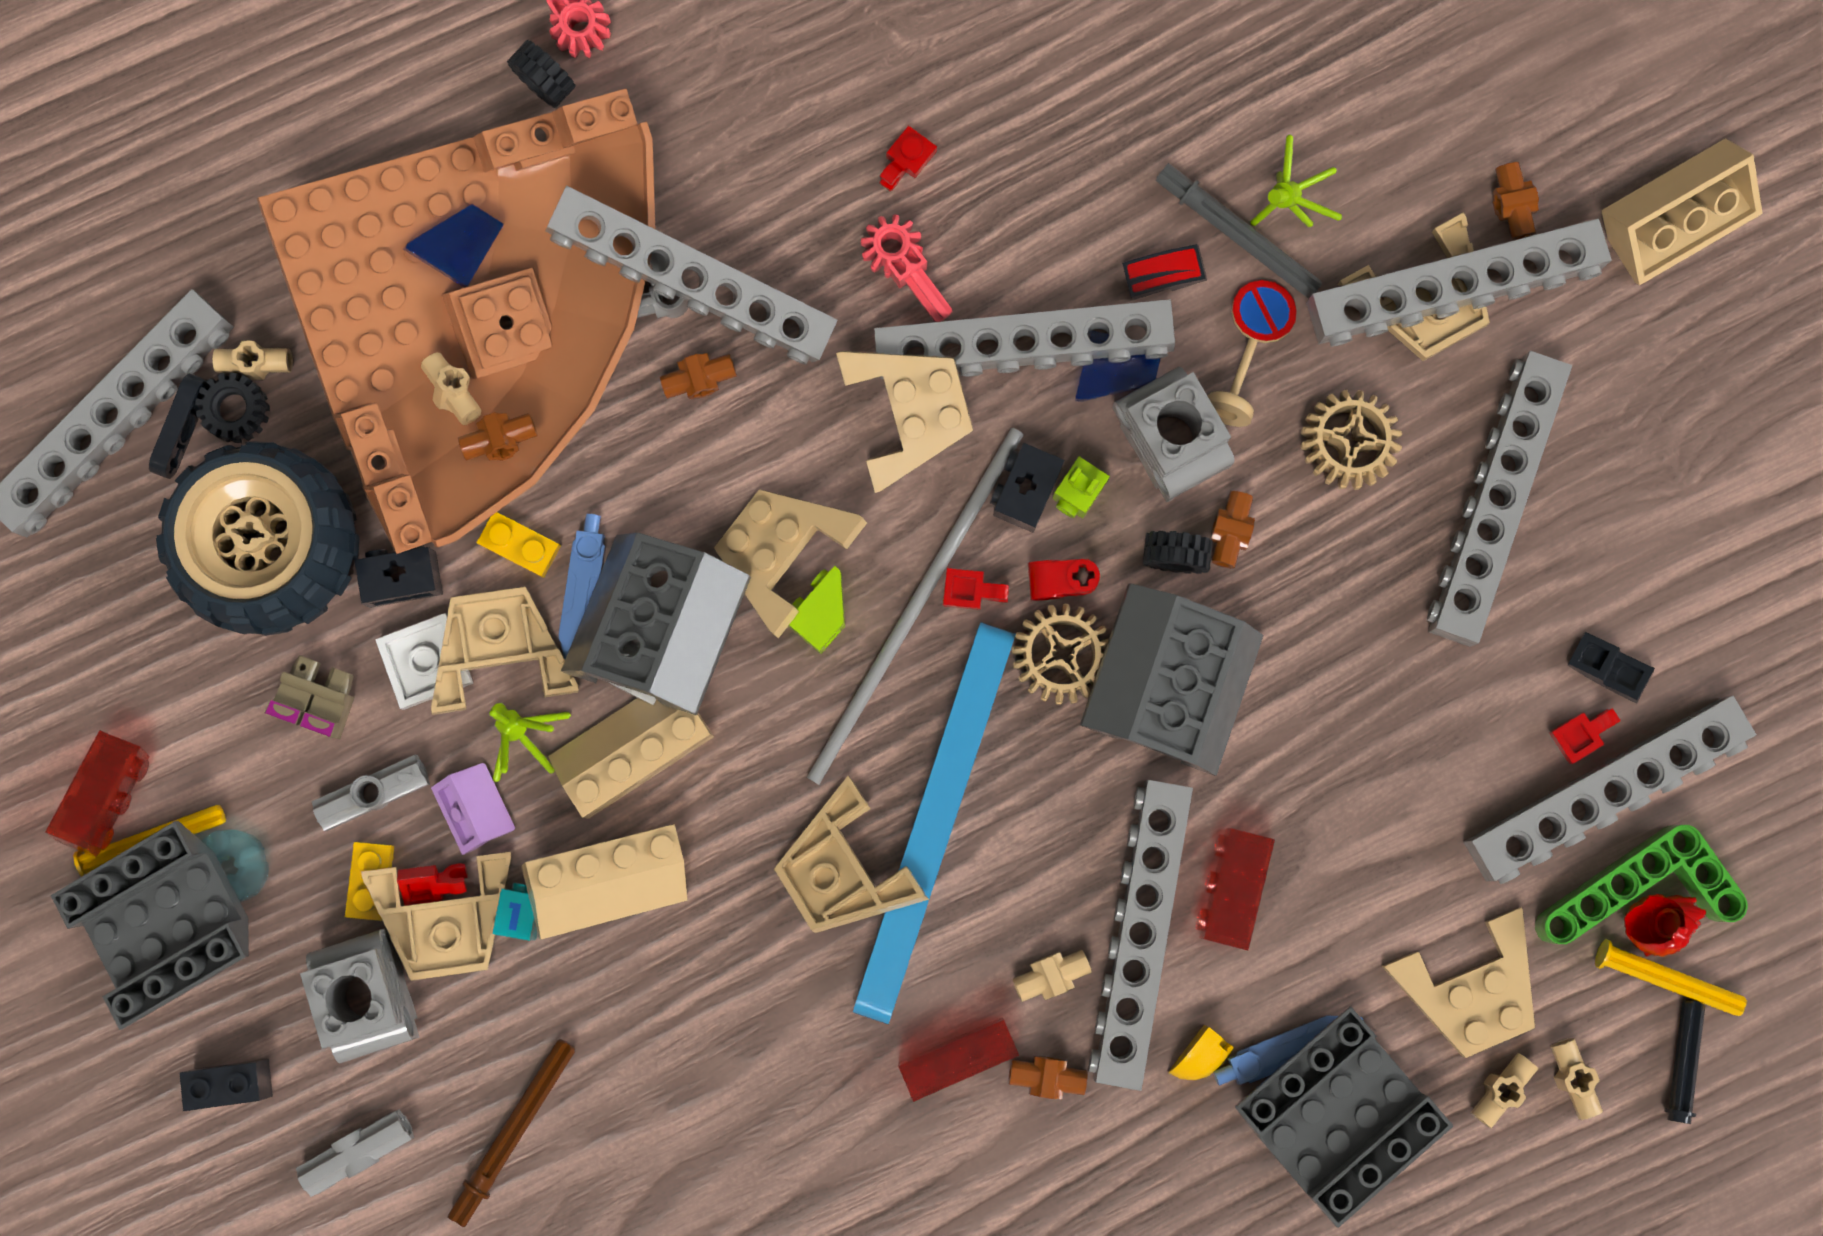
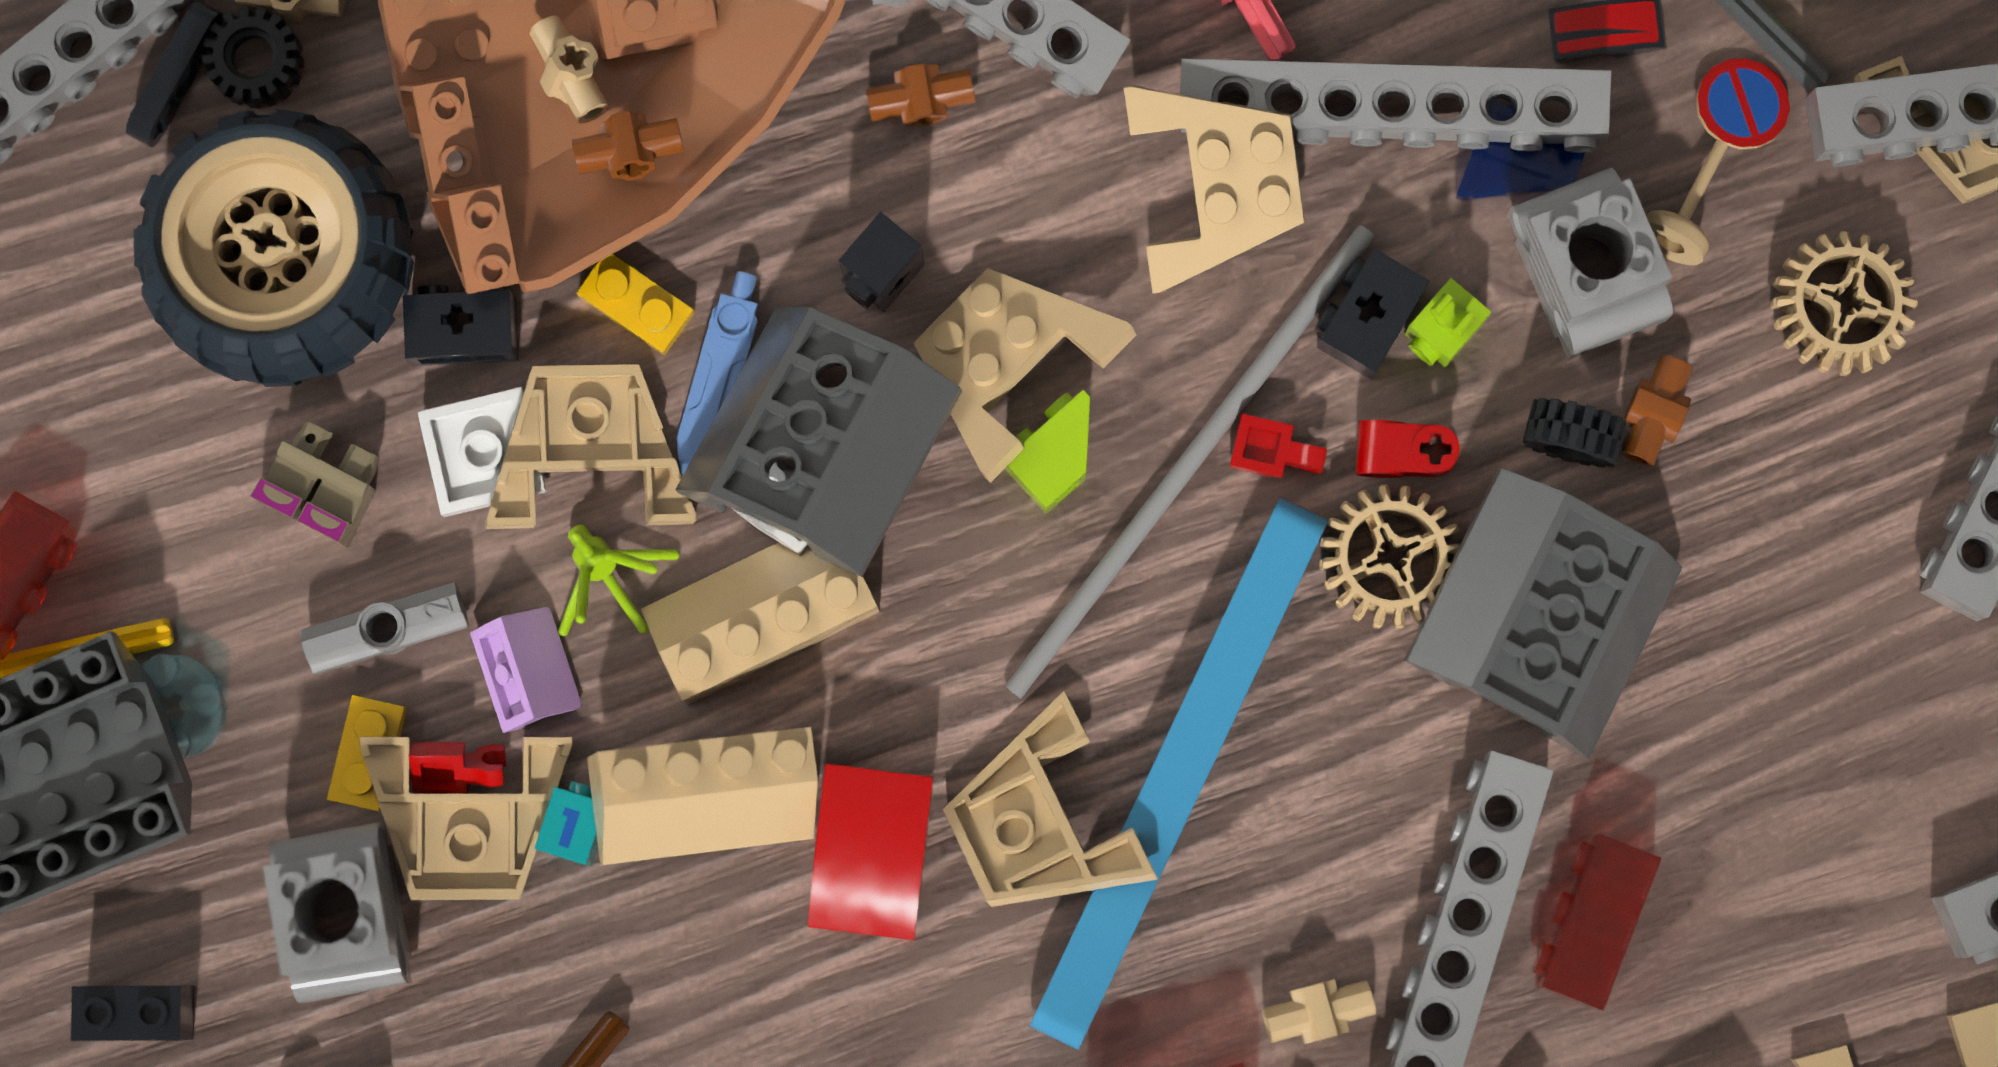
camera: 10 degrees right, 0 degrees up
(683, 496) = (880, 263): none -> black brick
(727, 905) = (870, 851): none -> red slope

